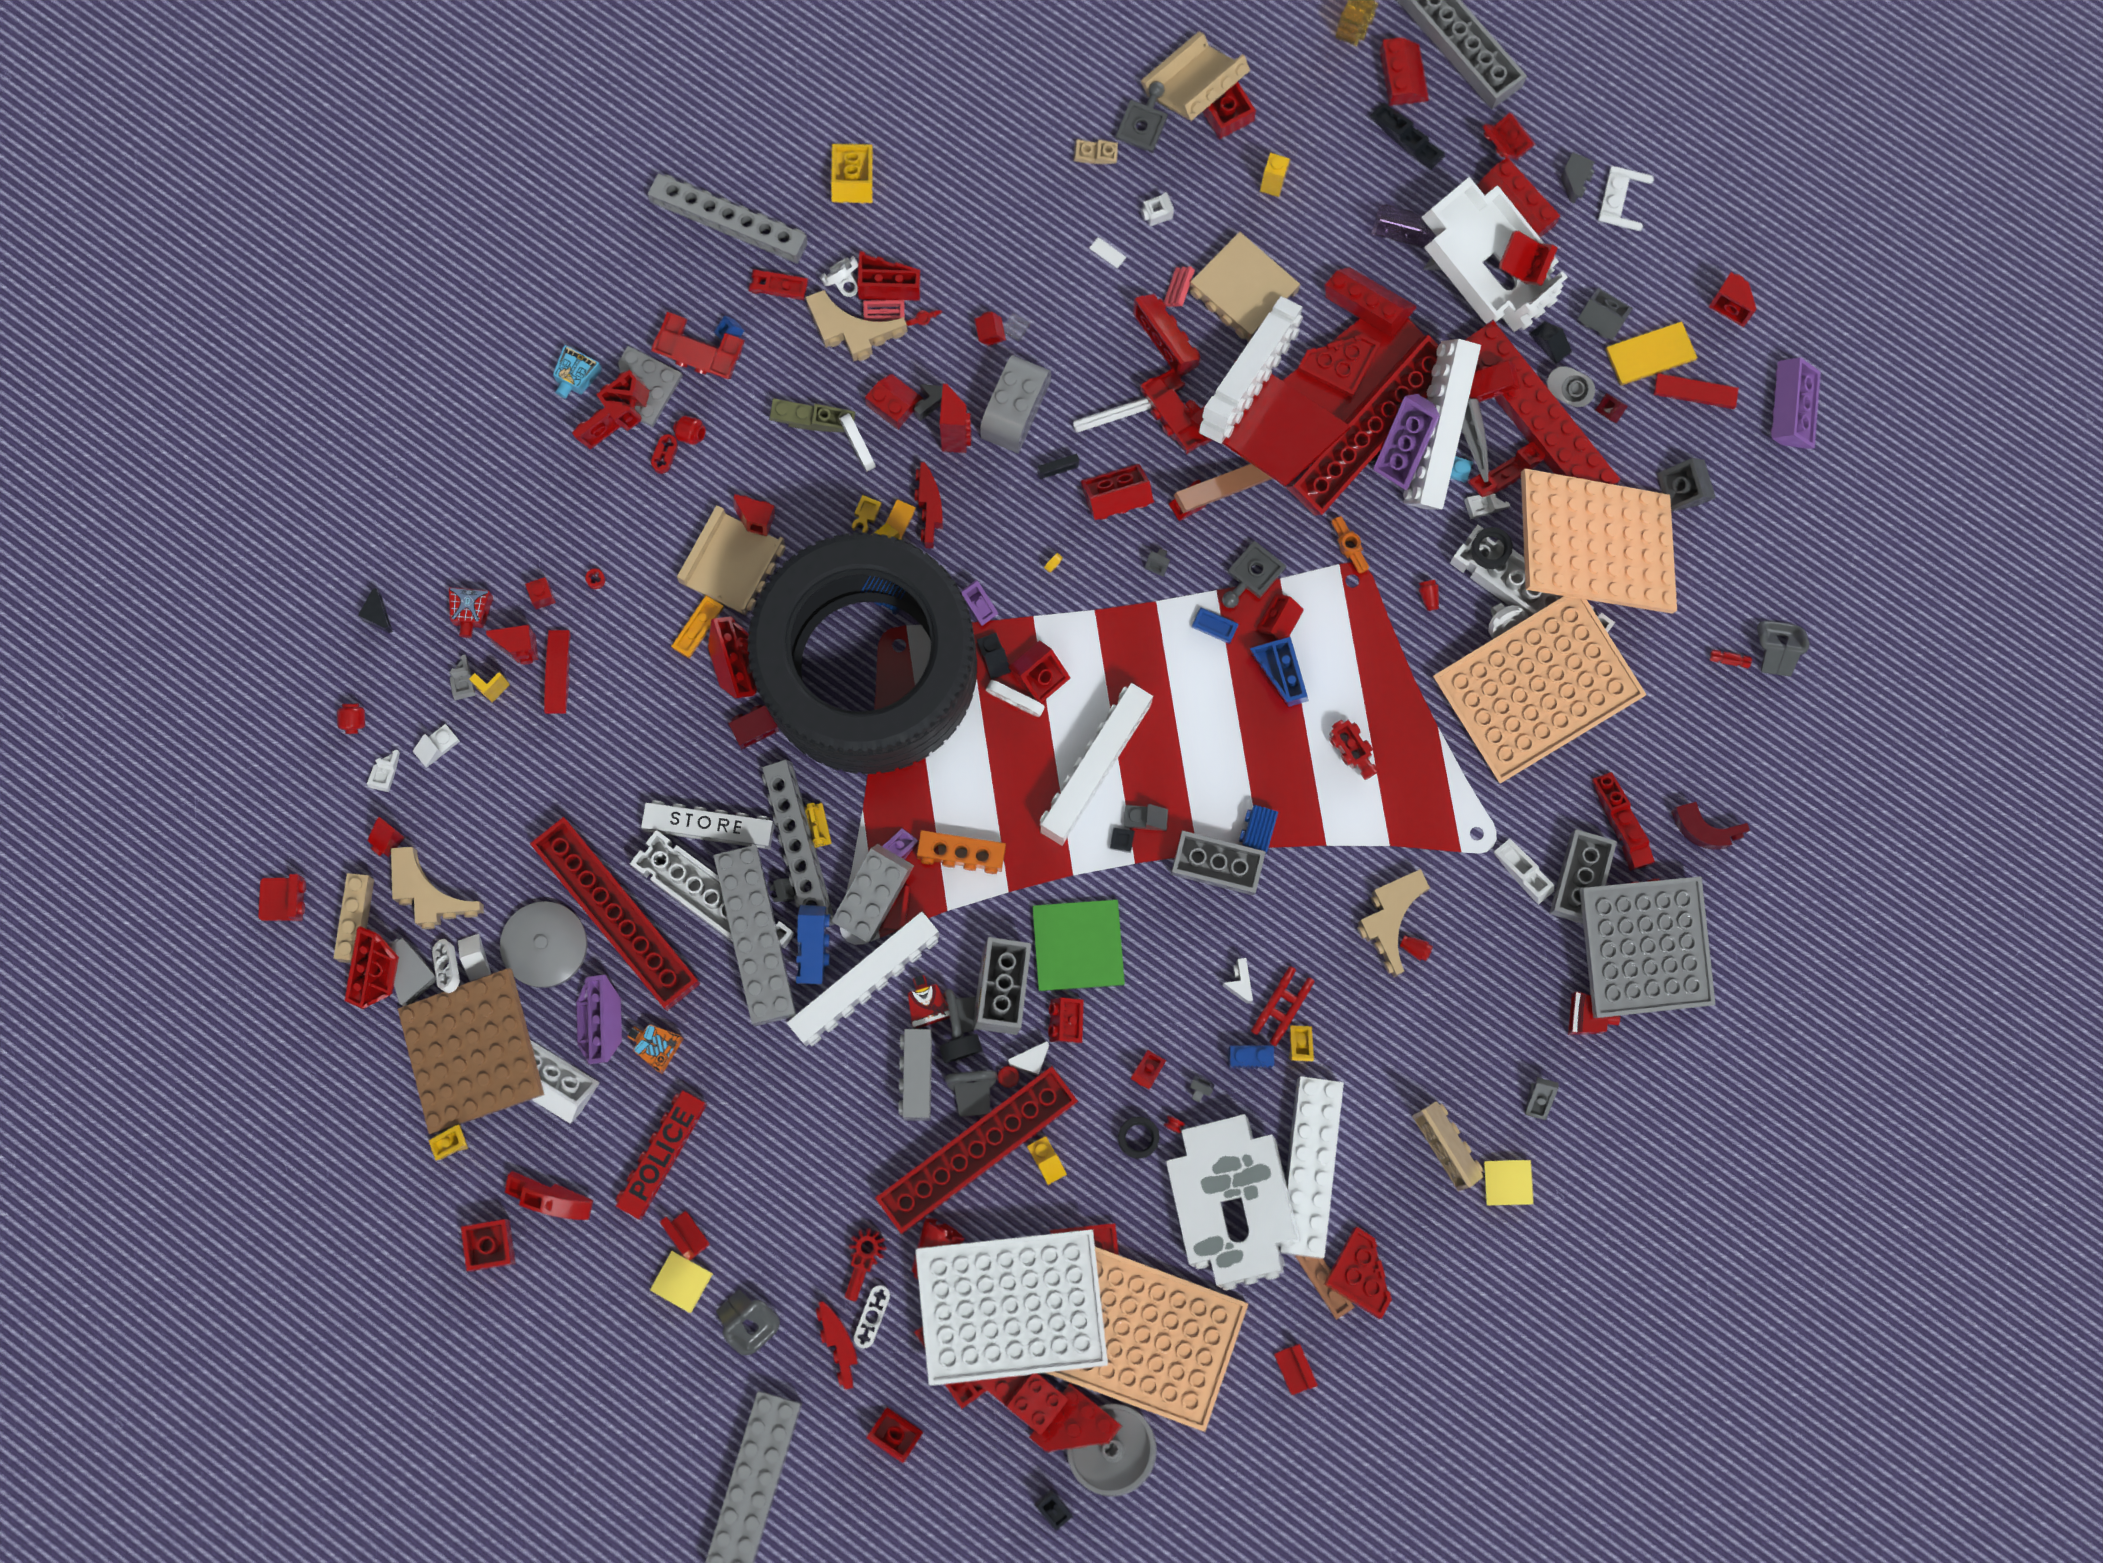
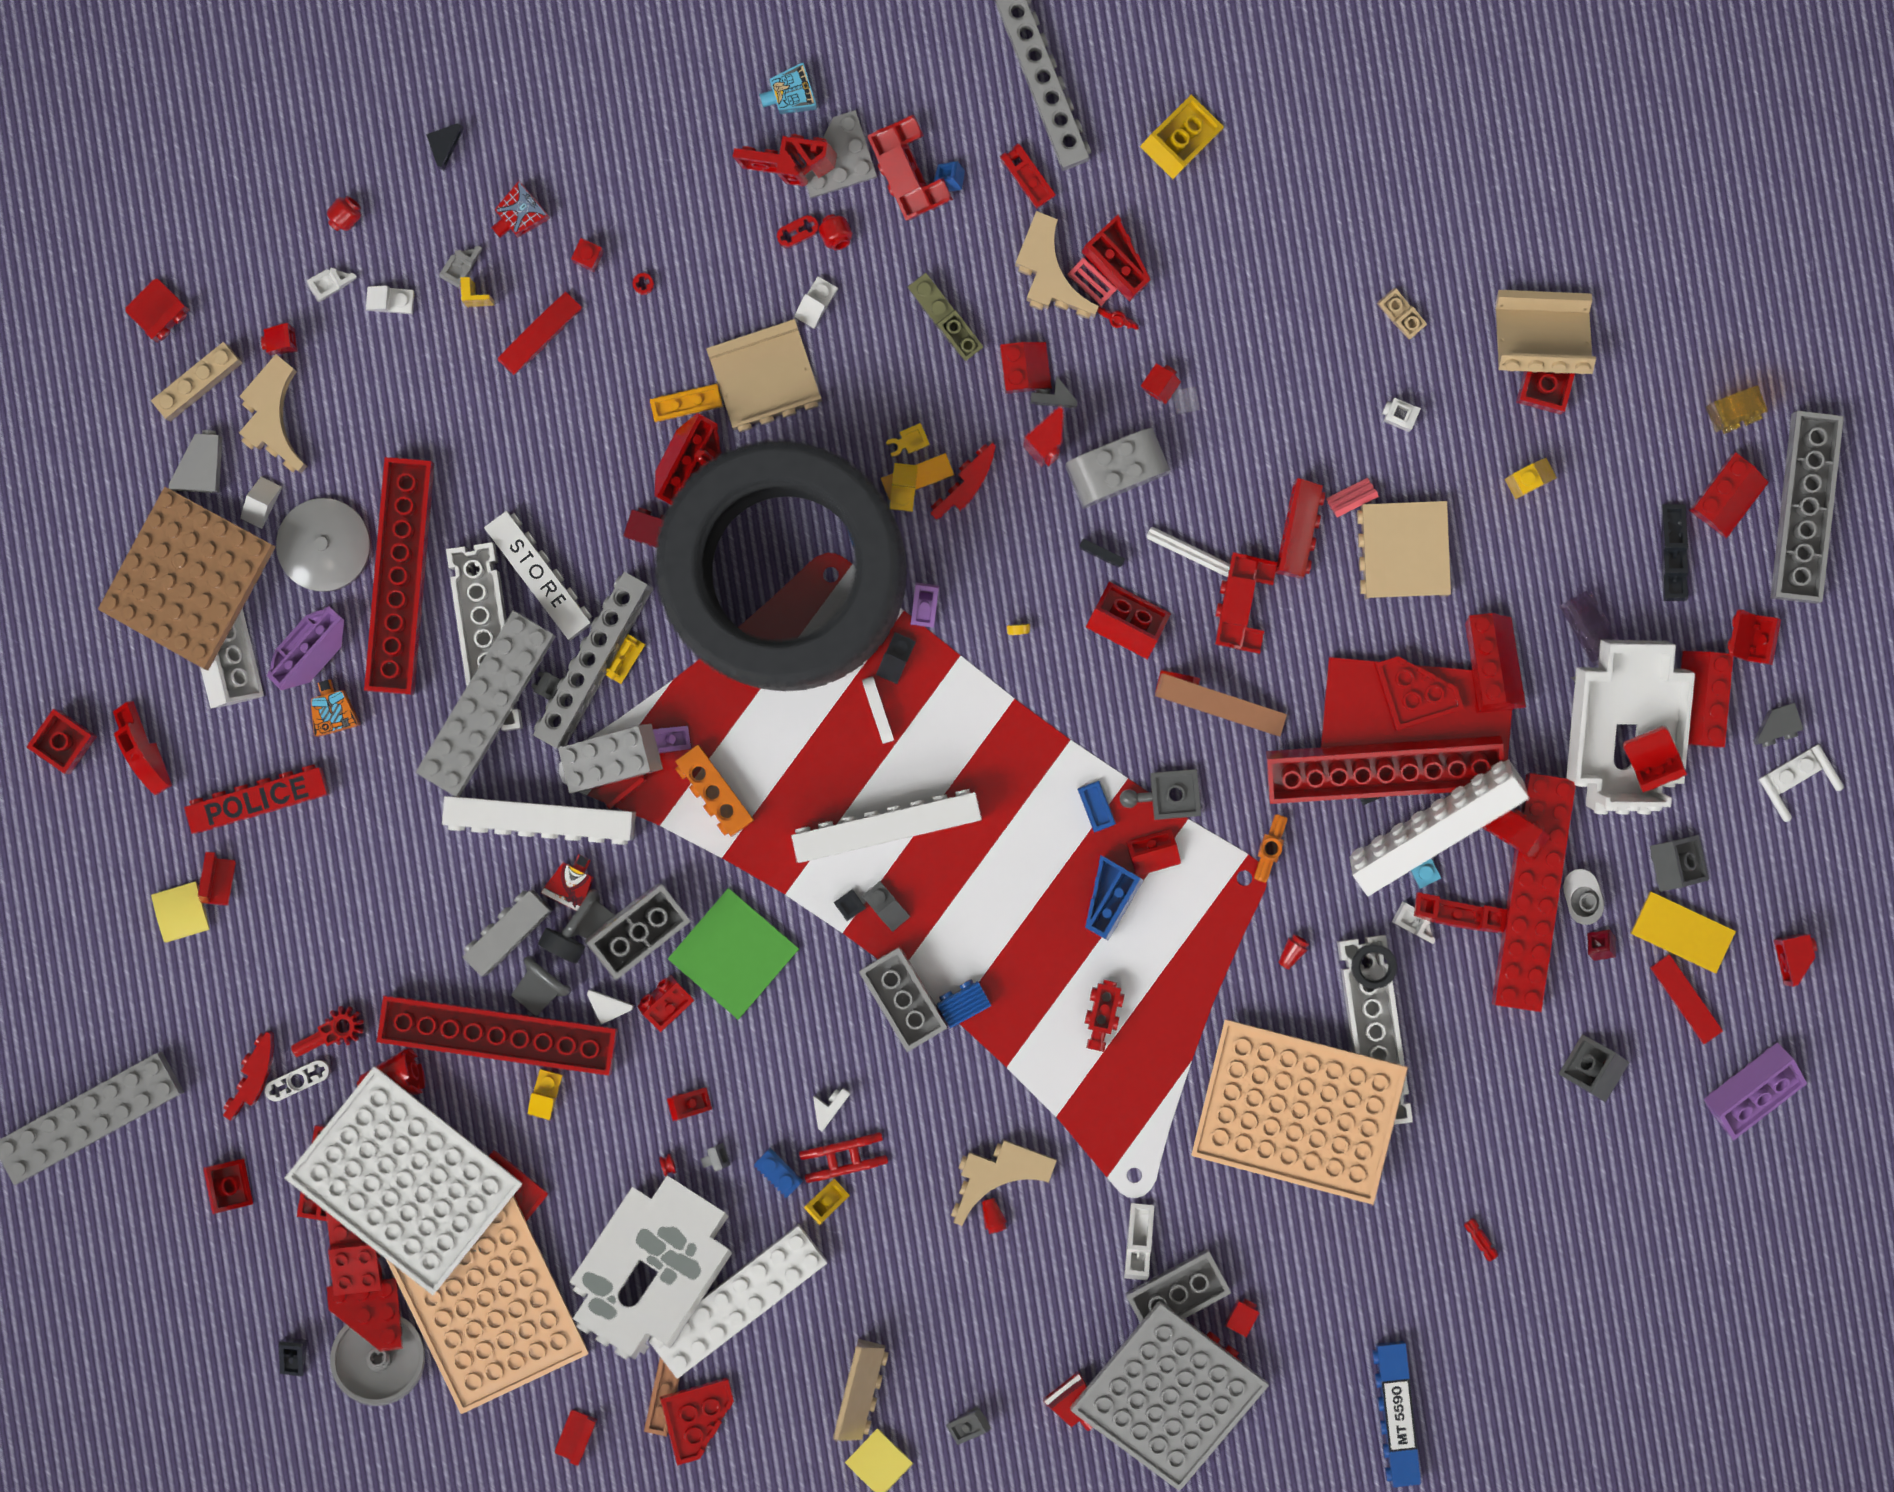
camera: 50 degrees right, 10 degrees up
(371, 969) = (169, 439): red wedge -> none
(446, 984) = (230, 500): white beam -> none
(448, 1143) = (105, 632): yellow slope -> none
(516, 642) = (527, 280): red slope -> none
(719, 486) = (815, 302): none -> white slope
(736, 1311) = (200, 976): dark grey piece -> none
(754, 514) = (818, 355): red slope -> none
(812, 944) = (524, 753): blue wedge -> none
(841, 273) = (1085, 217): white tile -> none
(857, 442) = (958, 376): white beam -> none
(1008, 1076) = (578, 1001): red tile -> none
(1039, 672) = (917, 707): red slope -> none
(1107, 252) = (1325, 409): white sticker -> none
(1146, 113) = (1469, 315): dark grey plate -> none
(1154, 1135) = (613, 1151): black tyre -> none
(1158, 562) = (1101, 711): dark grey tile -> none
(1251, 370) = (1330, 631): white brick -> none
(1280, 430) = (1299, 688): red flag -> none
(1407, 440) = (1397, 813): medium lavender slope -> none
(1475, 436) = (1460, 860): light grey piece -> none
(1505, 618) = (1329, 1032): white tile -> none
(1552, 341) = (1611, 842): black slope -> none
(1598, 541) = (1464, 1046): light nougat plate -> none
(1619, 813) = (1261, 1272): red slope -> none
(1697, 831) = (1307, 1343): dark red arch -> none
(1777, 657) = (1517, 1276): dark grey piece -> none
(1796, 817) = (1397, 1414): none -> brick

